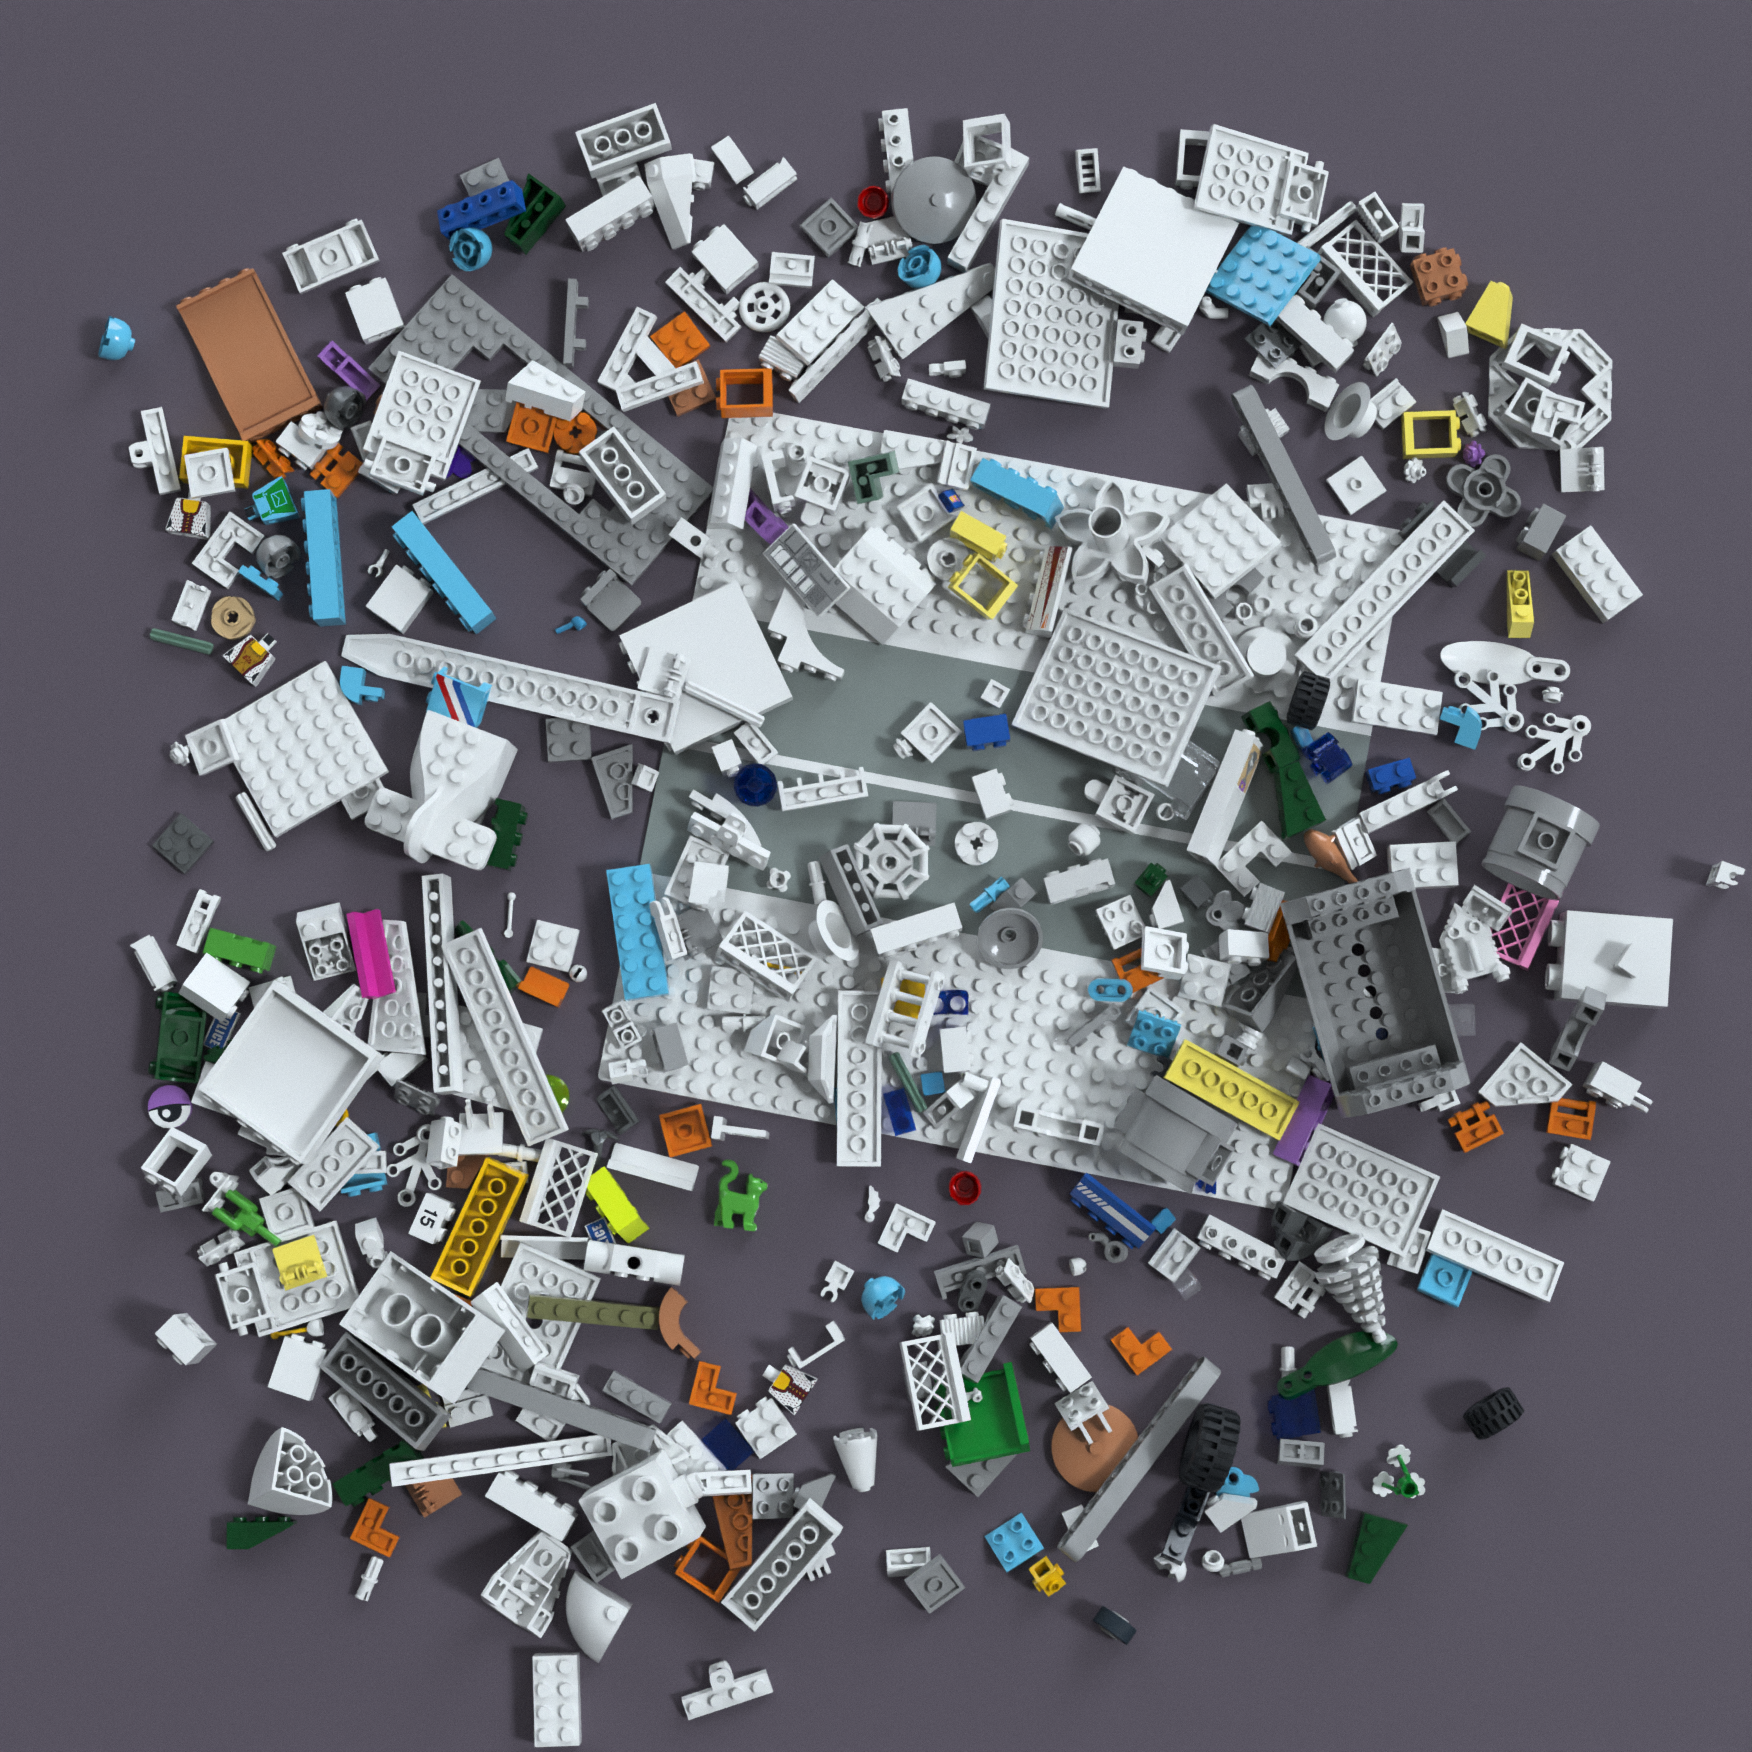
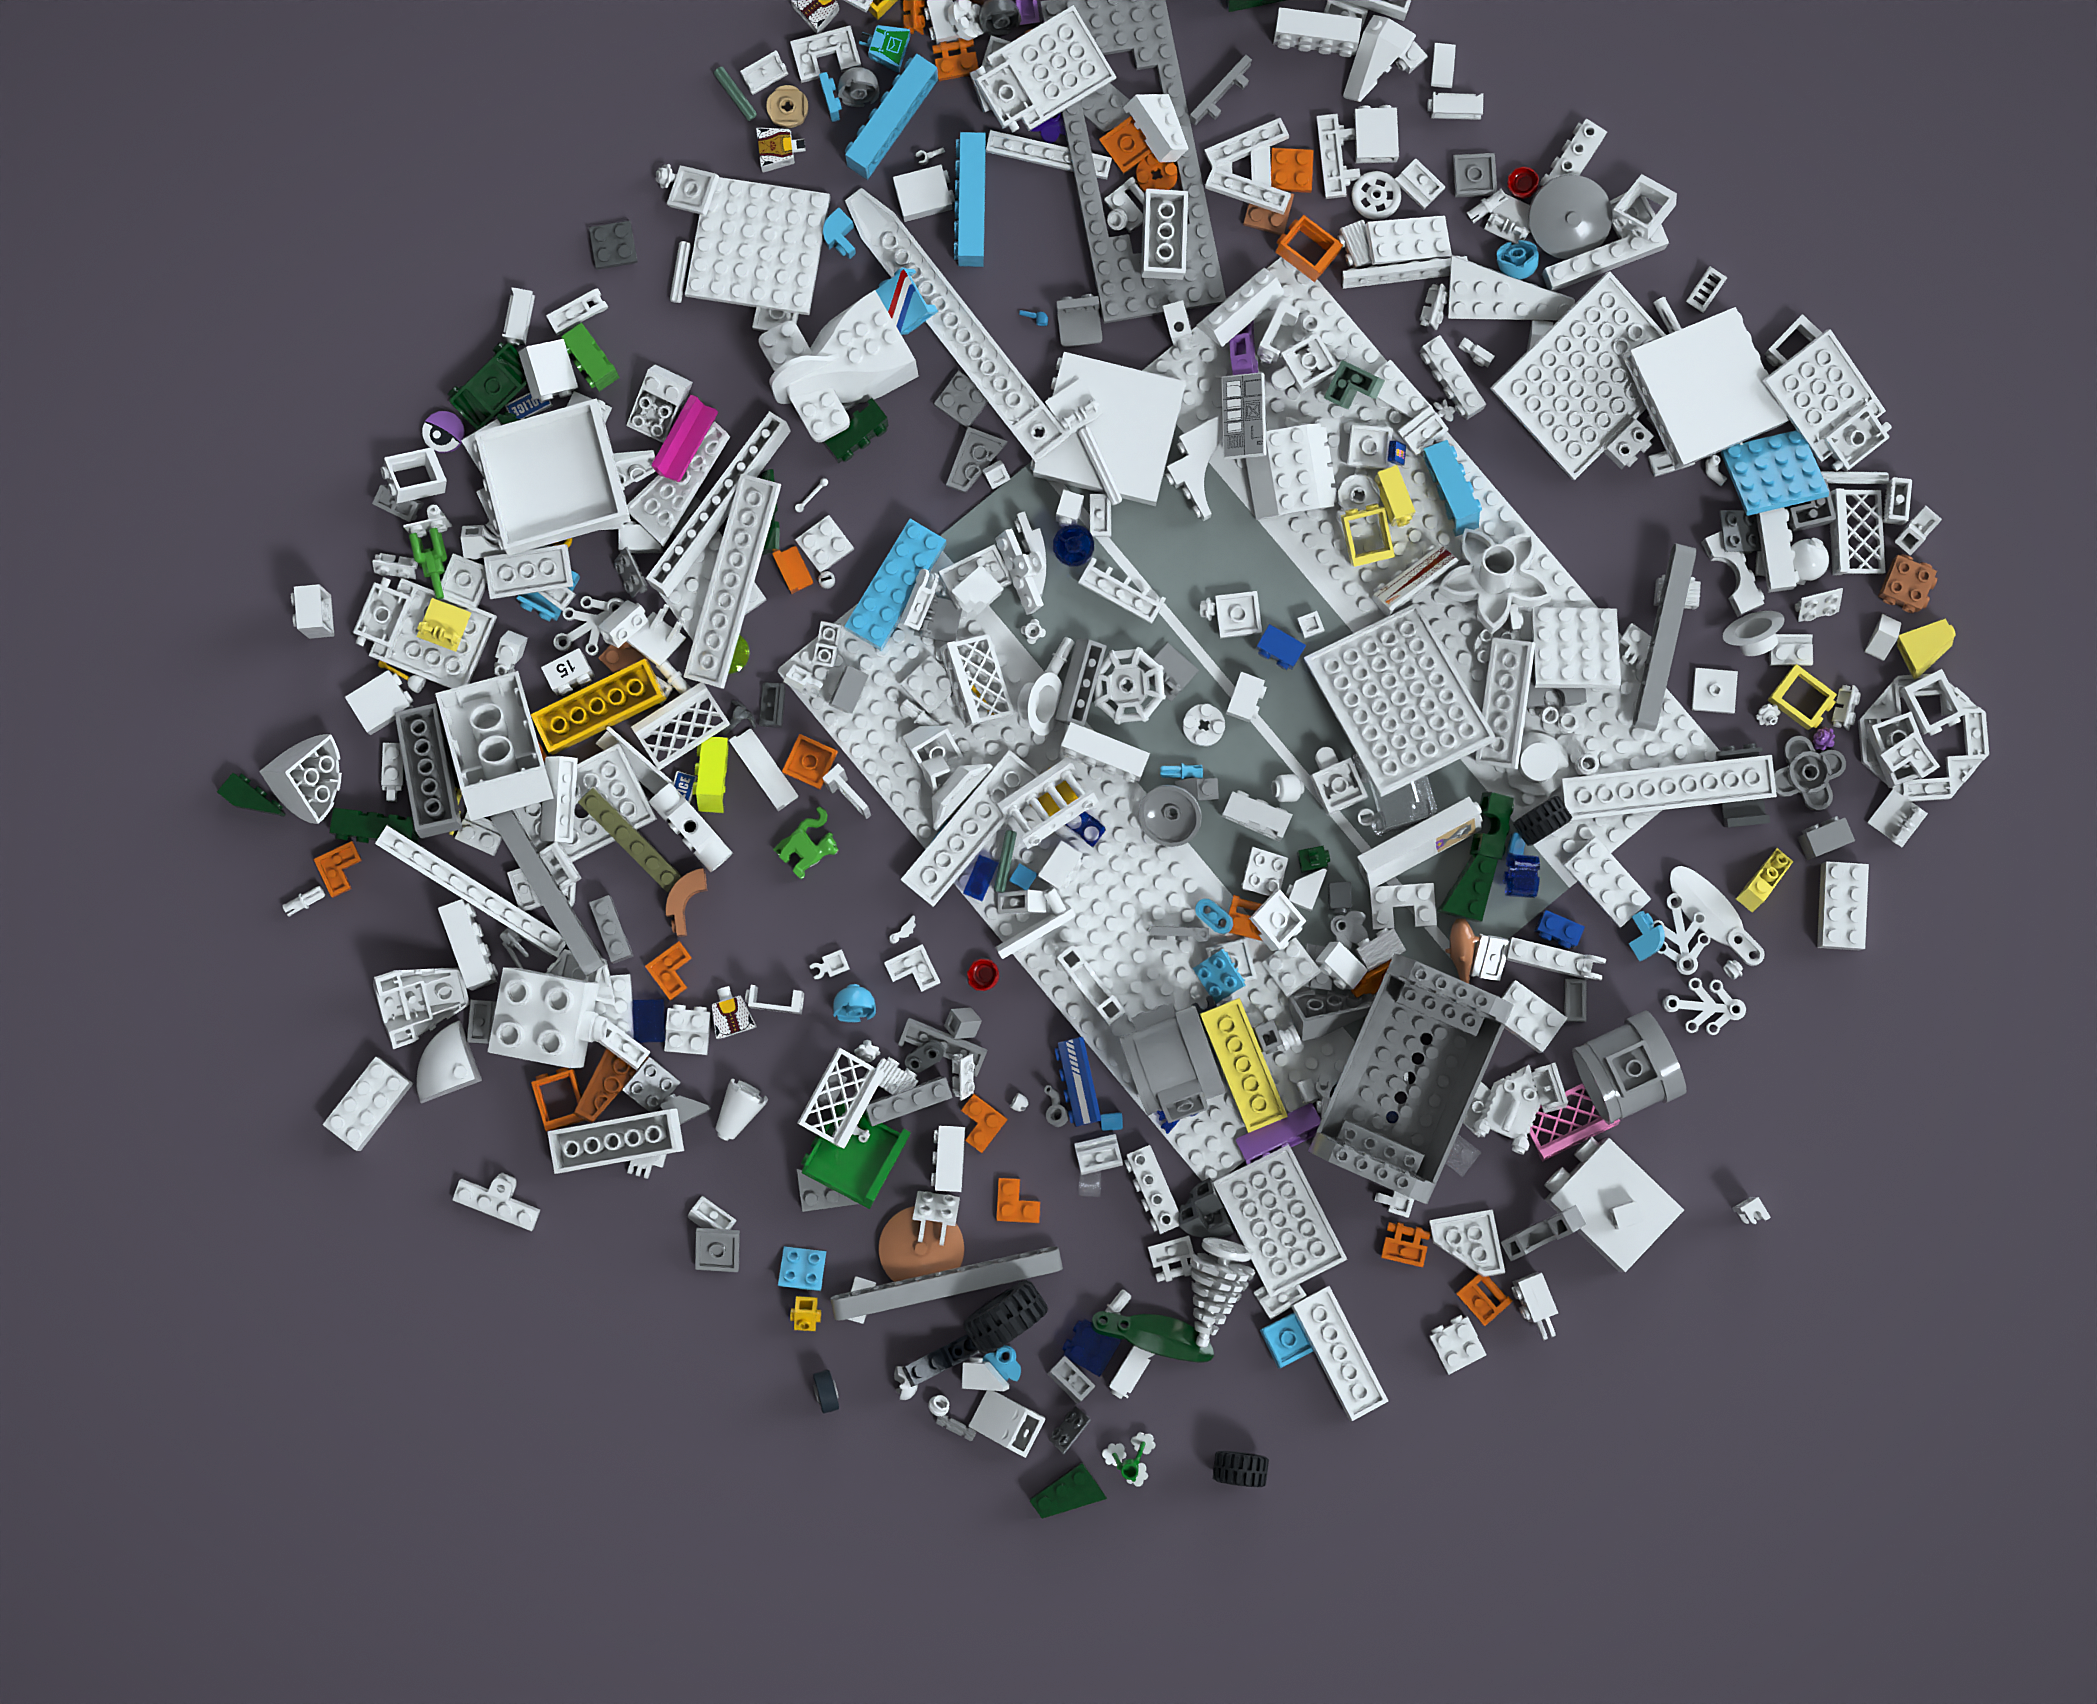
camera: 30 degrees right, 0 degrees up
(433, 1494) = (402, 877): nougat hinge -> none

